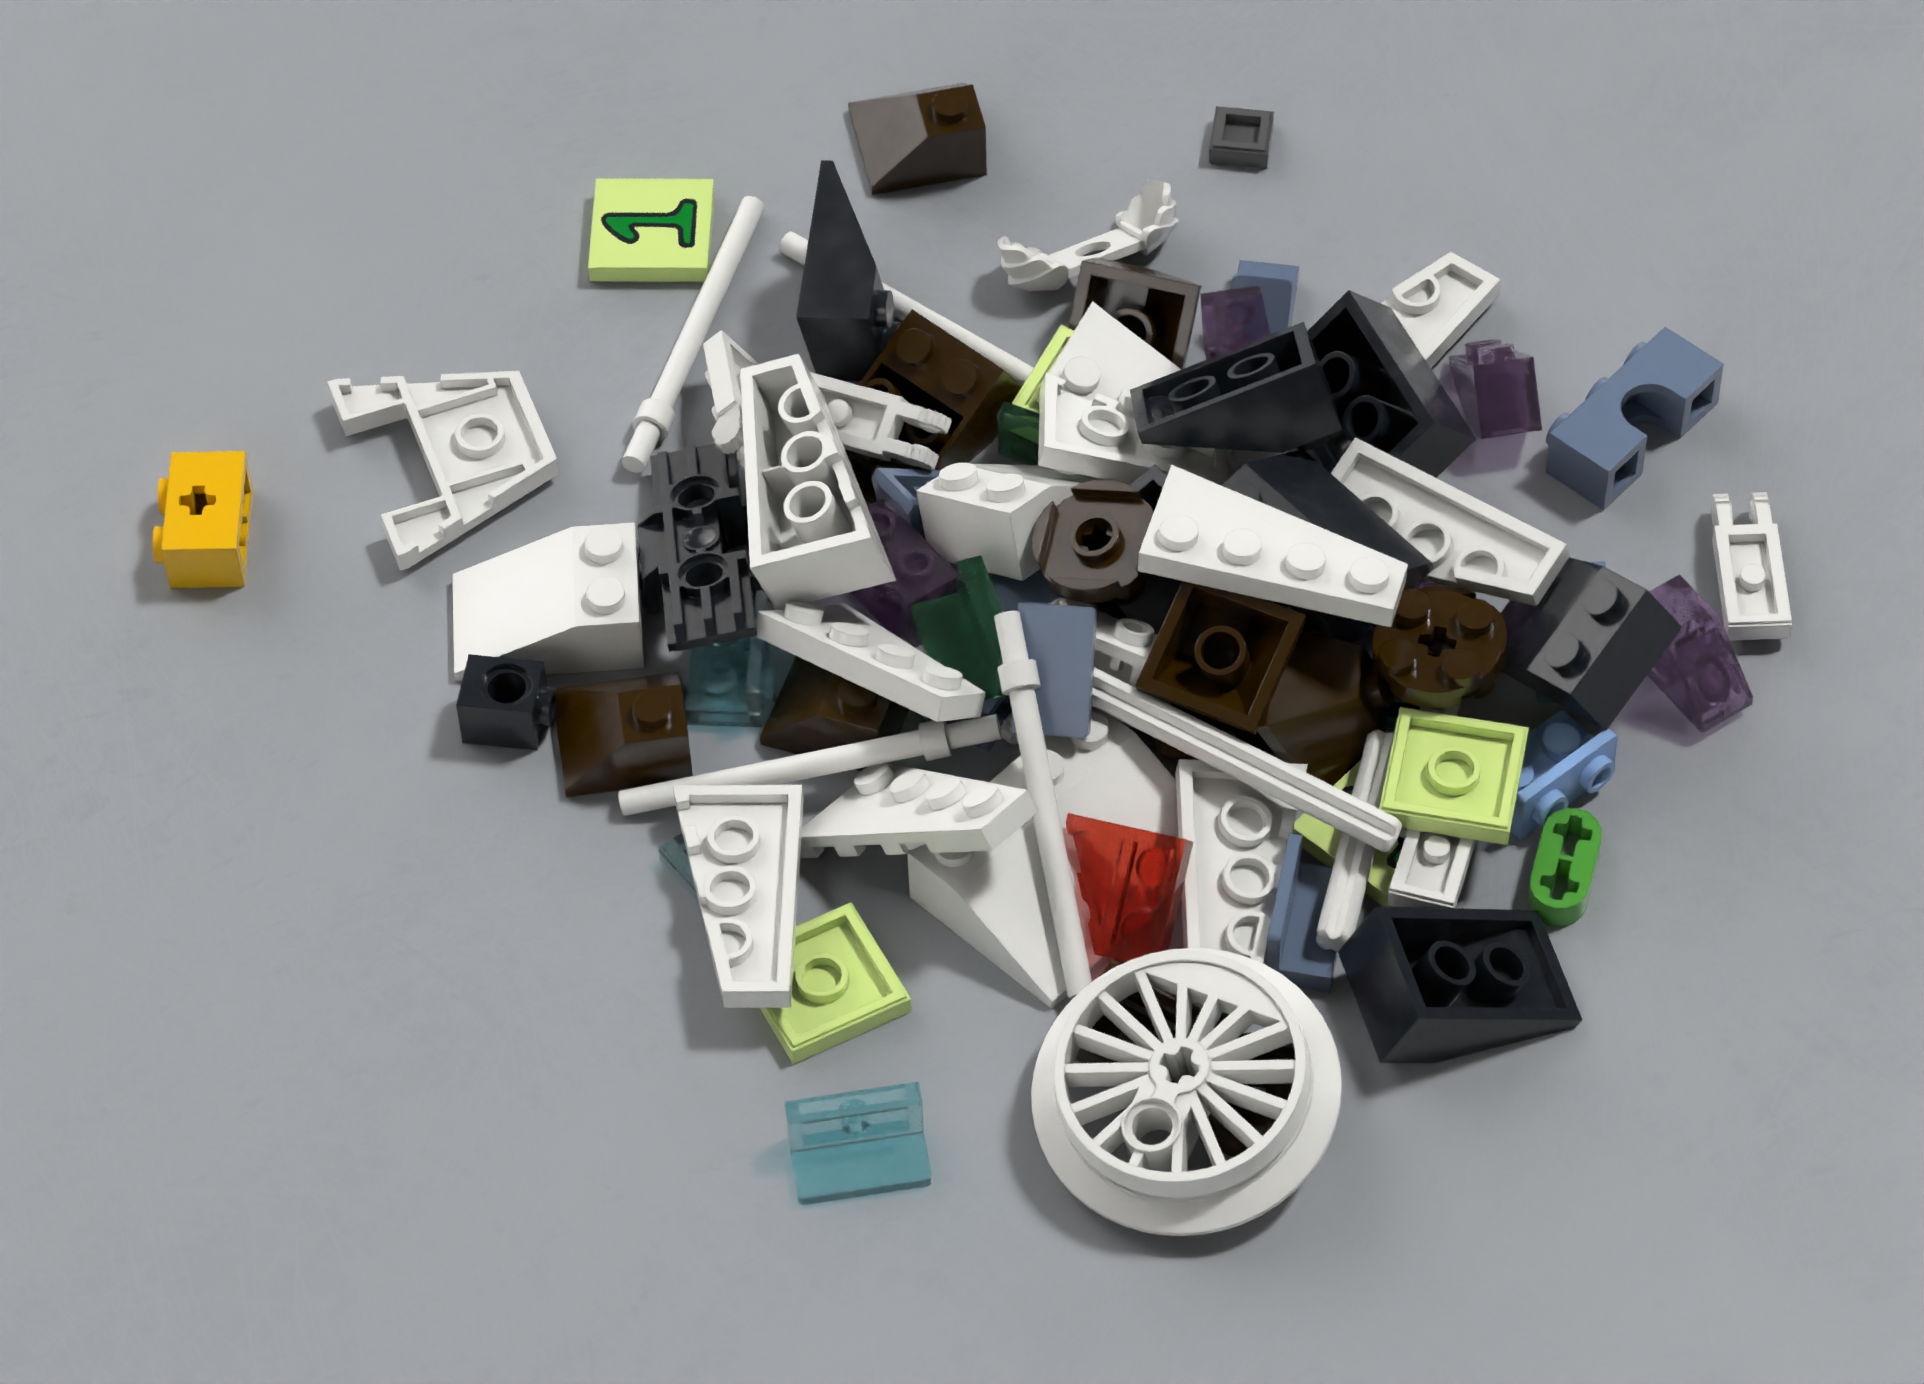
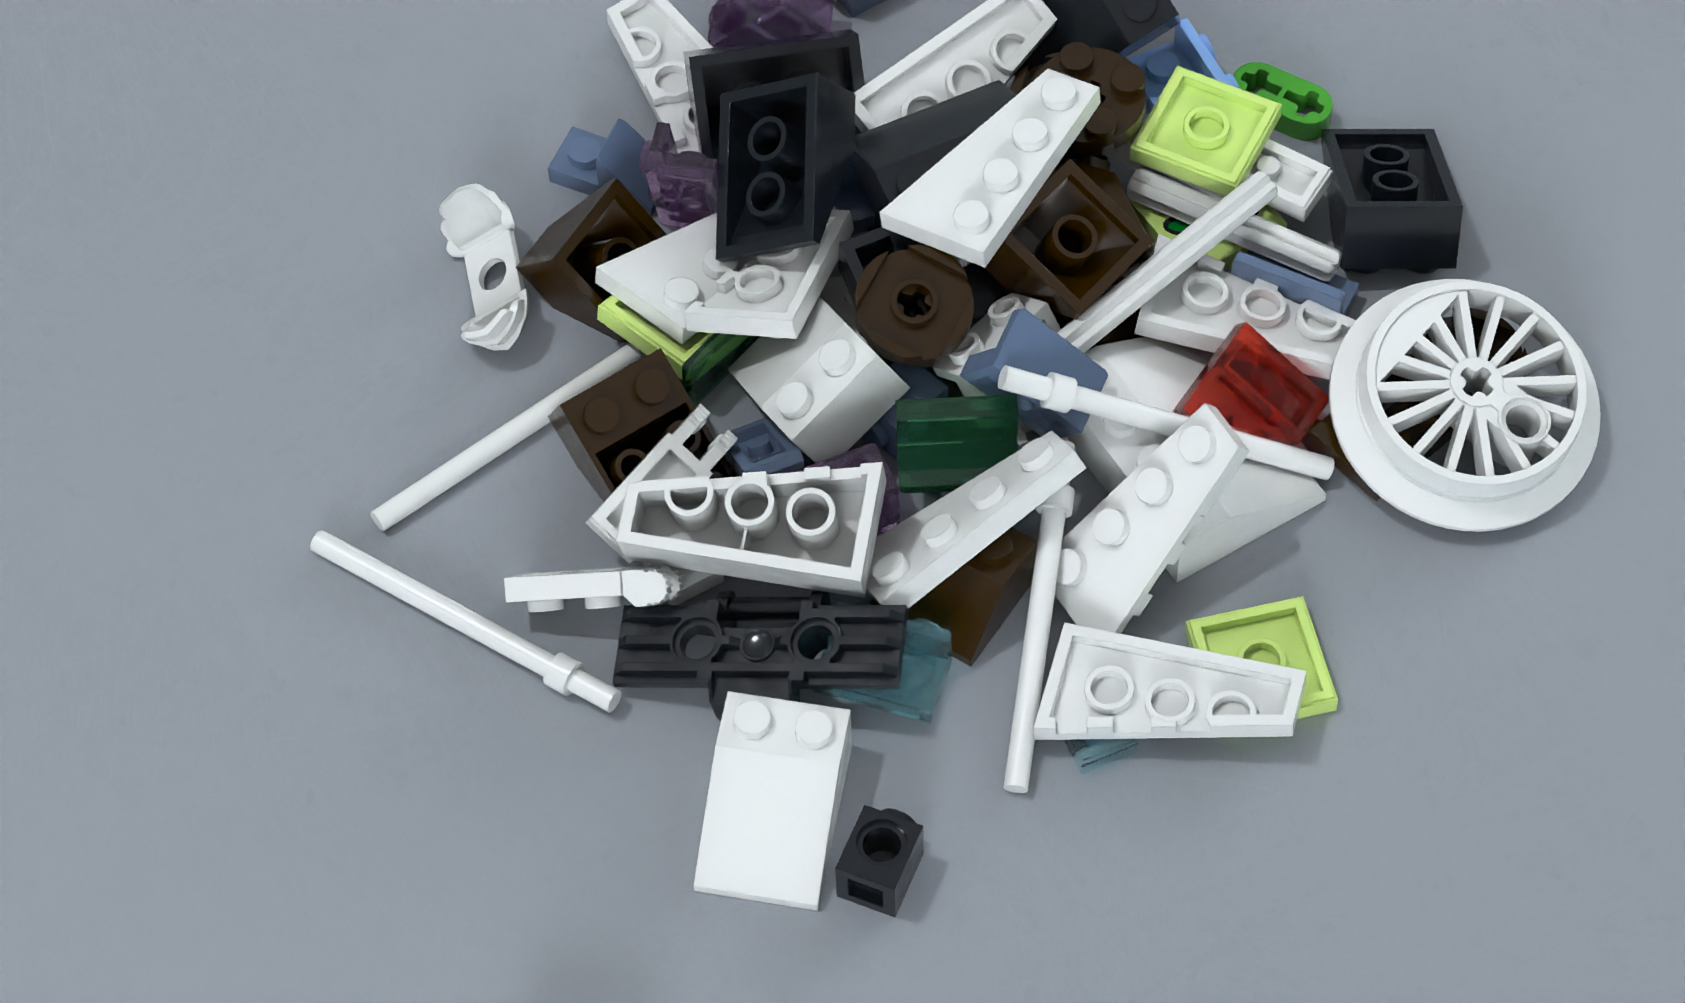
camera: 75 degrees left, 5 degrees up
(475, 439) = (541, 831): white wing -> none
(622, 734) = (936, 761): dark brown slope -> none
(651, 230) = (317, 632): yellowish green tile -> none
(841, 296) = (492, 454): black slope -> none
(858, 1143) = (1451, 671): clear light blue panel -> none
(920, 137) = (287, 379): dark brown slope -> none
(1241, 137) = (392, 138): dark grey tile -> none

